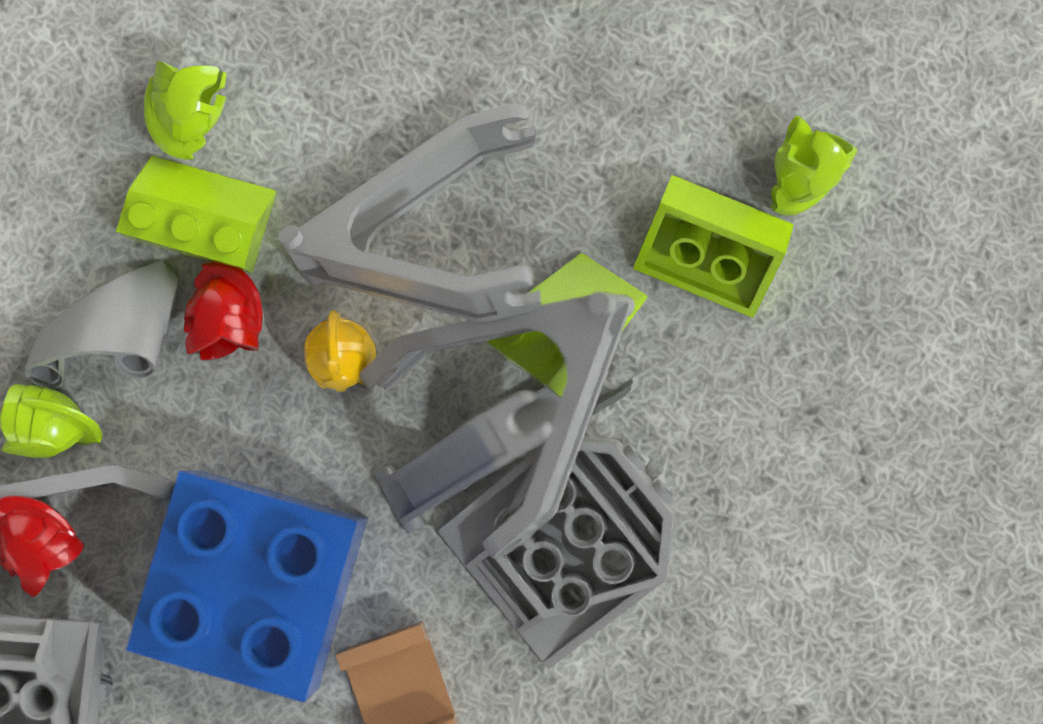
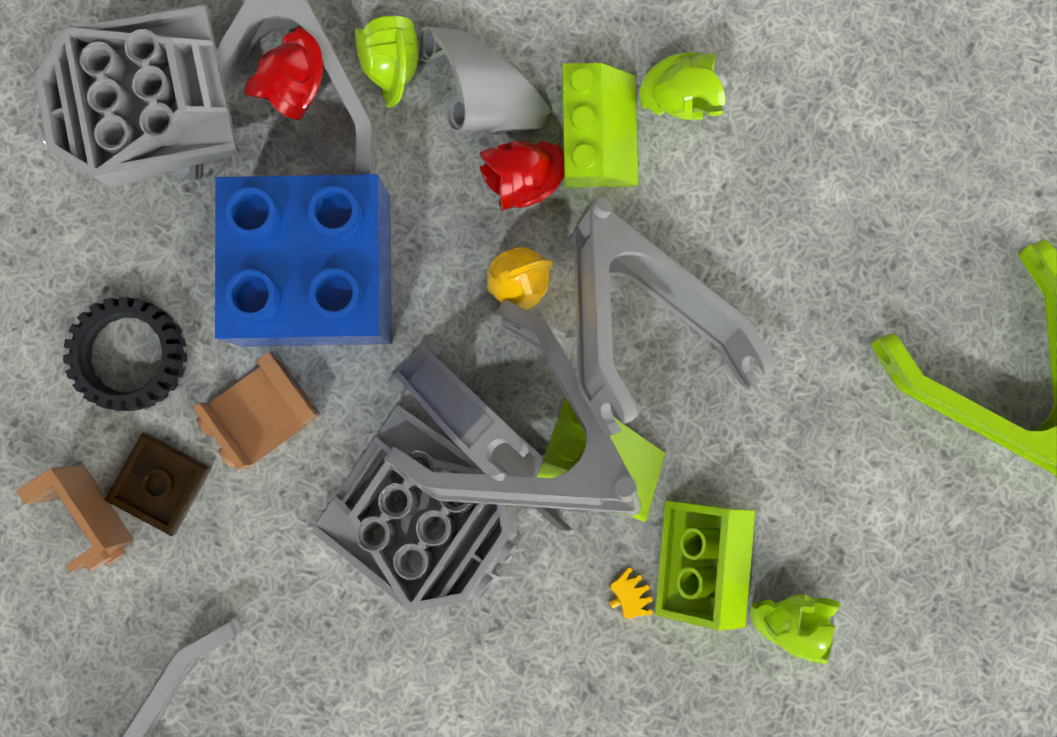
camera: 65 degrees right, 0 degrees up
(724, 340) = (629, 595): none -> yellow piece

